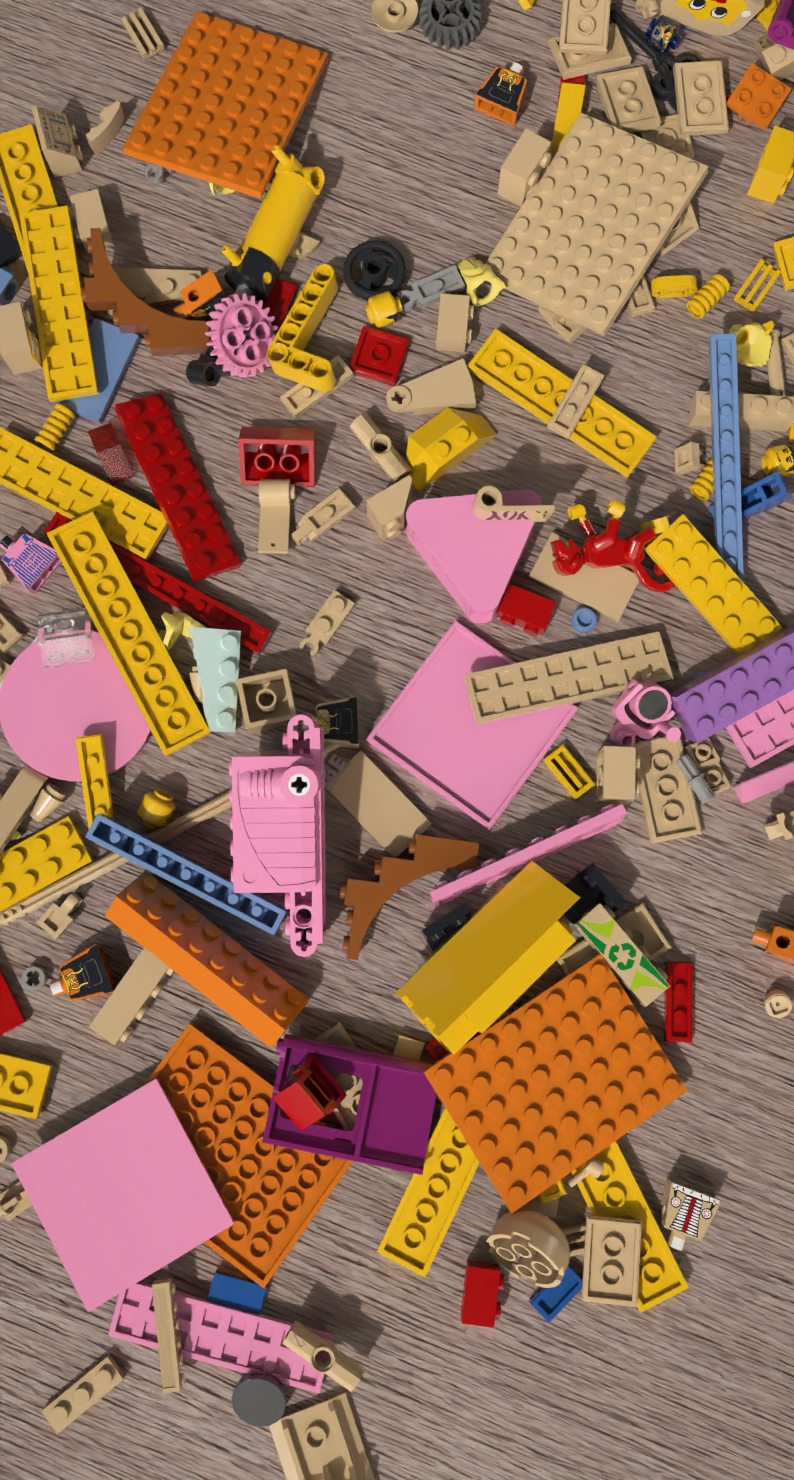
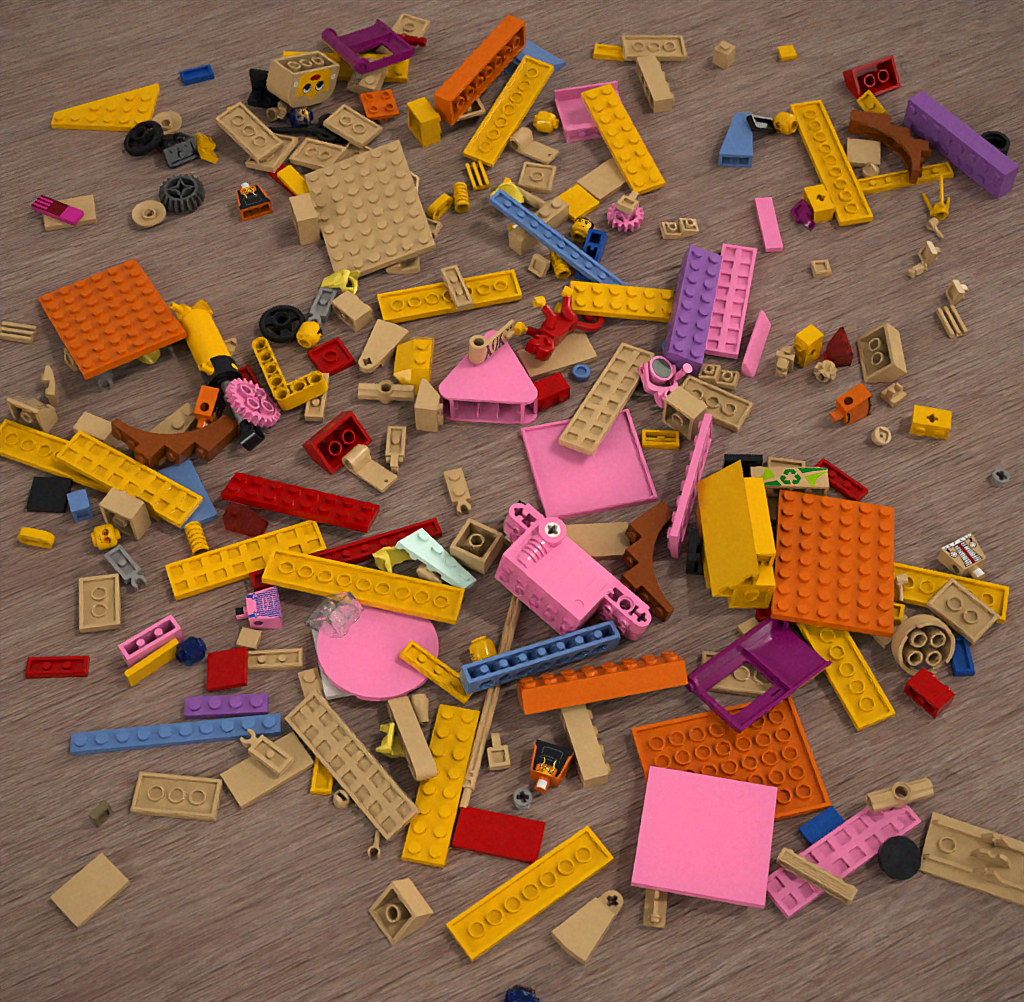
camera: 50 degrees left, 25 degrees down
(83, 1393) = (814, 965): tan plate -> none
(309, 1094) = (732, 688): red plate -> none
(695, 779) = (720, 382): light grey axle -> none

